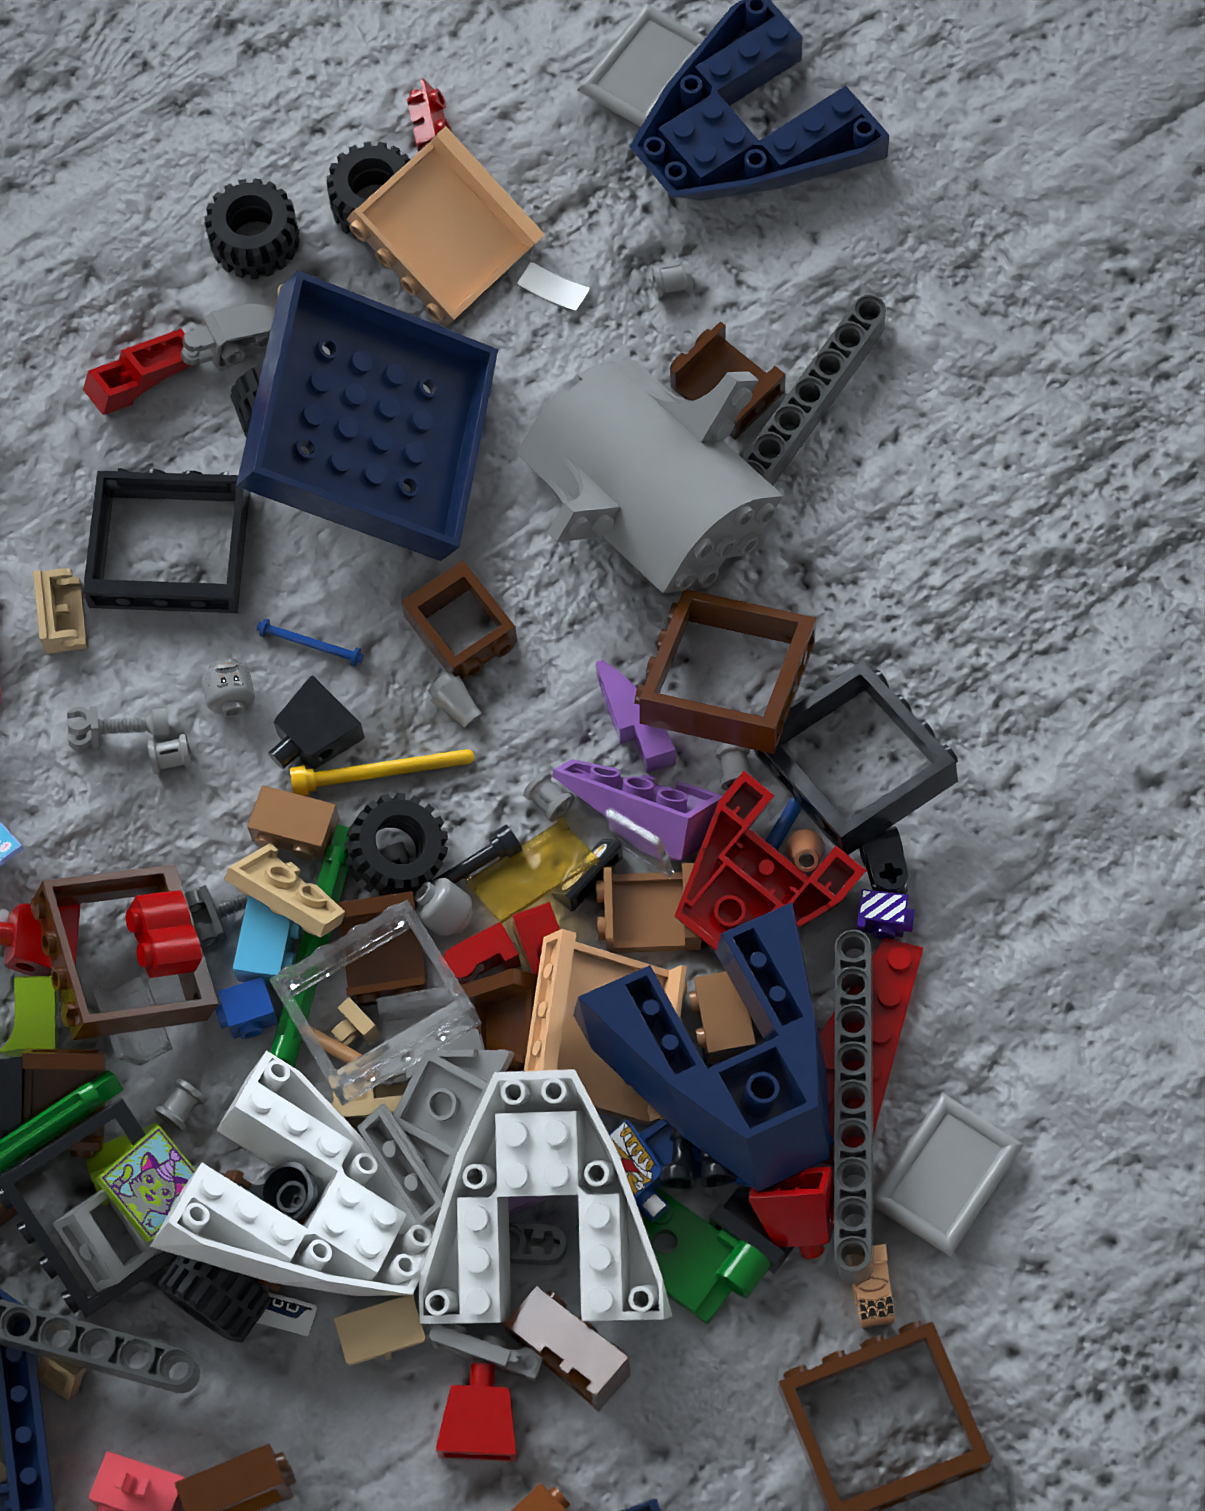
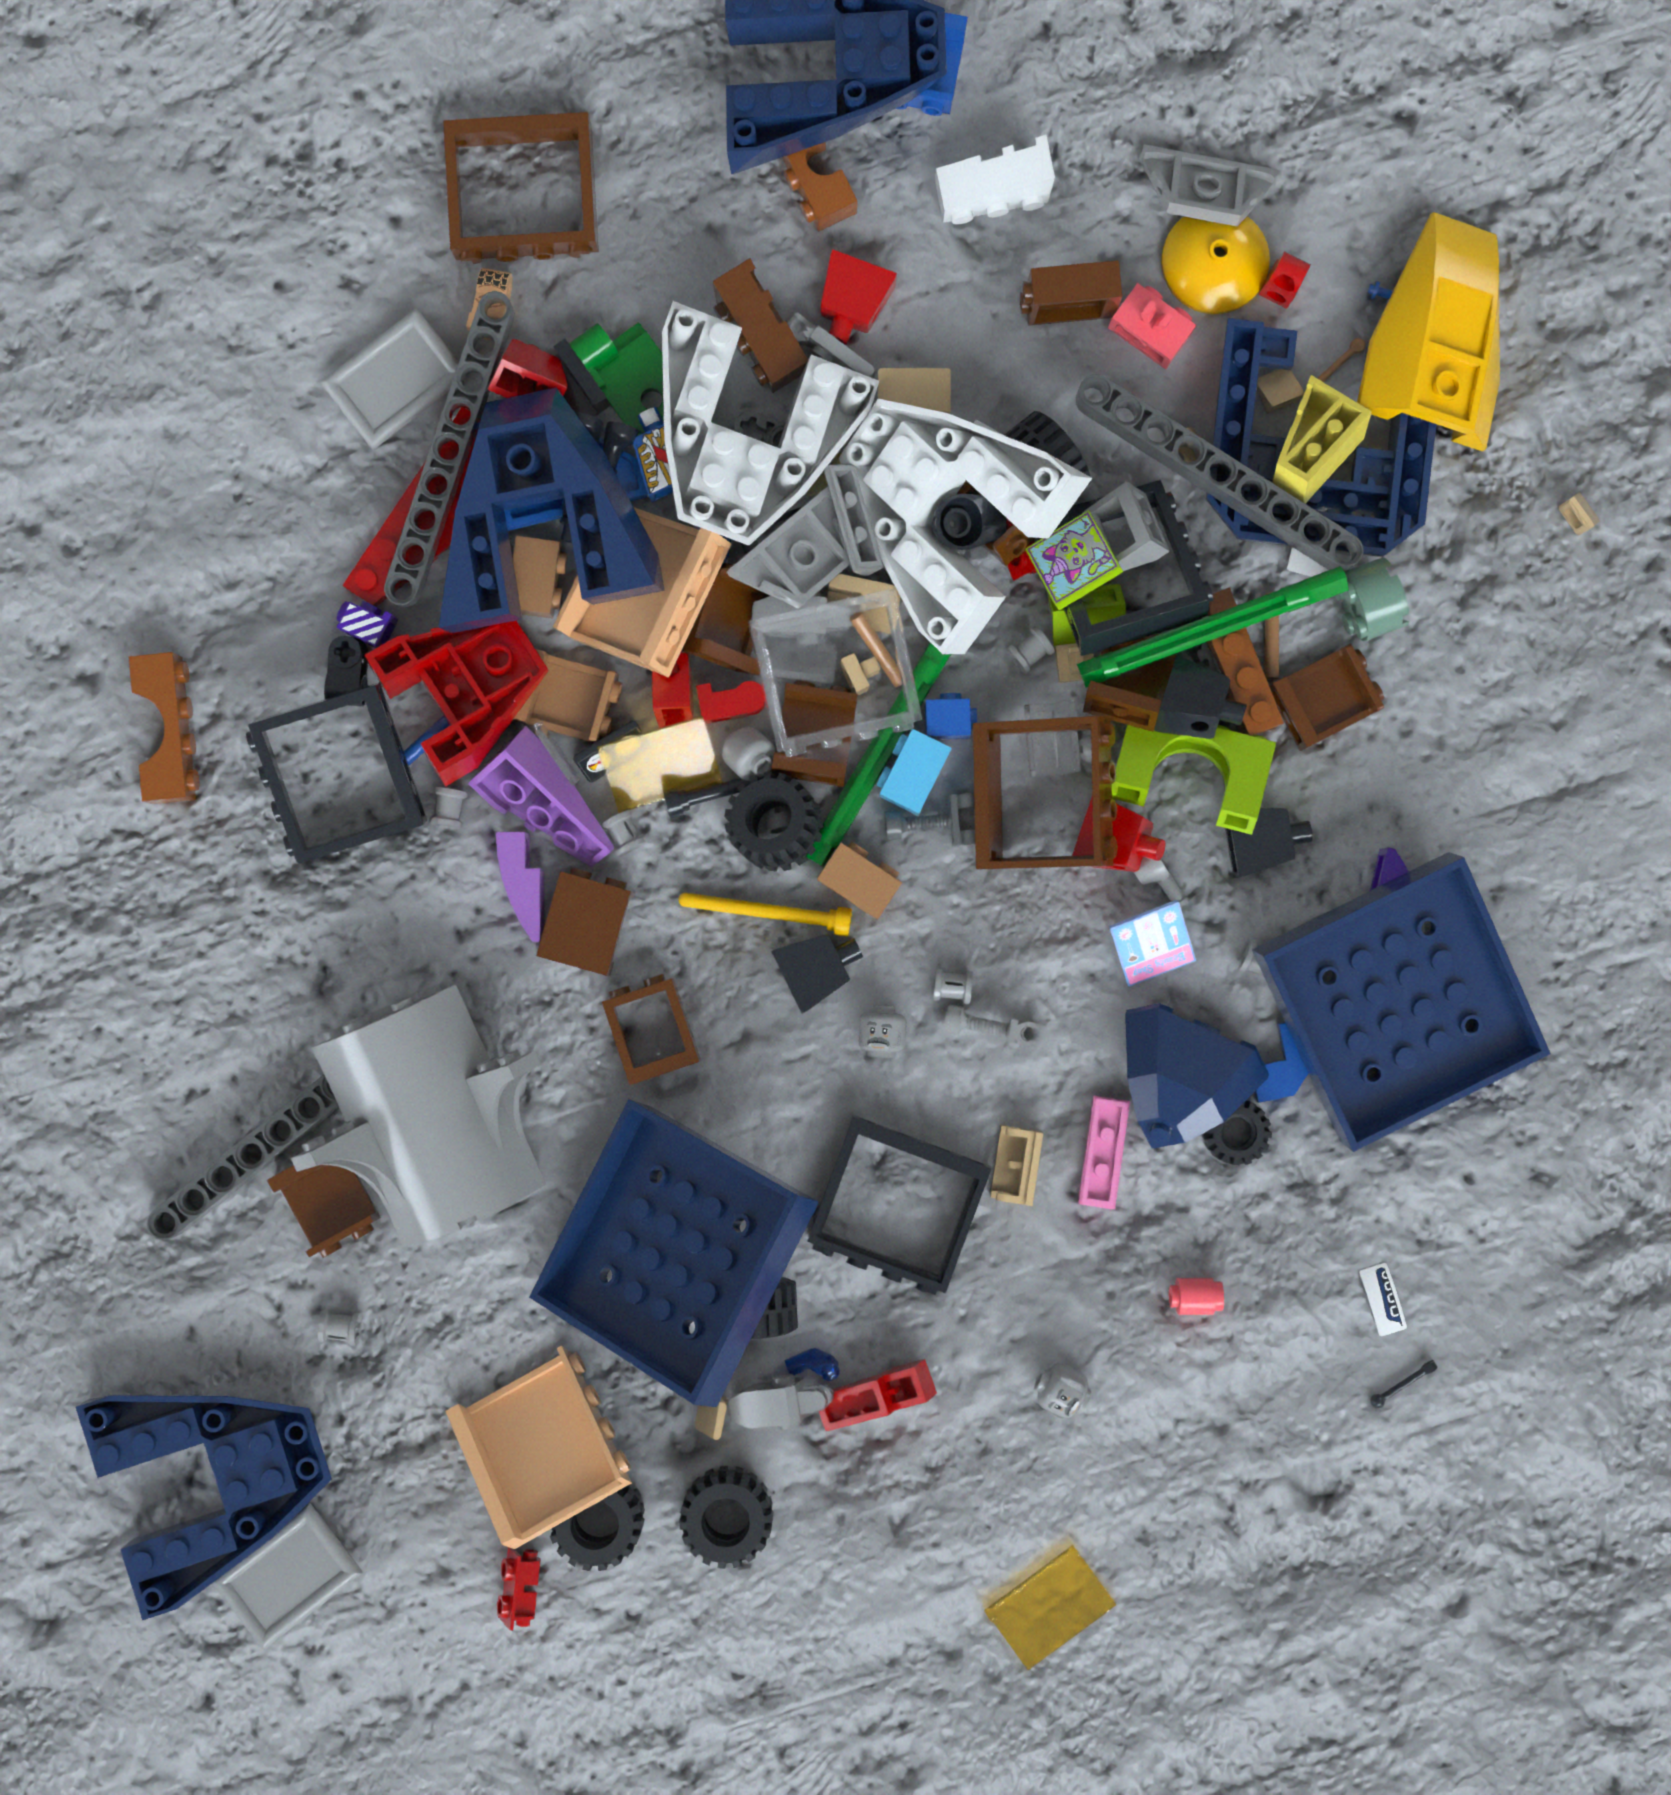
camera: 165 degrees left, 20 degrees up
(139, 1106) = (1067, 658): none -> tan tile
(164, 934) = (1004, 791): red brick -> none
(209, 385) = (816, 1361): none -> clear blue arm
(265, 628) = (793, 1058): blue axle -> none
(282, 890) = (890, 806): tan wing -> none
(453, 698) = (679, 956): light grey cone -> none
(552, 287) = (456, 1361): white sticker -> none
(558, 700) = (584, 921): none -> reddish brown panel
(718, 722) = (480, 852): reddish brown window -> none
(805, 842) = (412, 703): nougat cone -> none
(1071, 793) = (170, 771): none -> dark orange arch

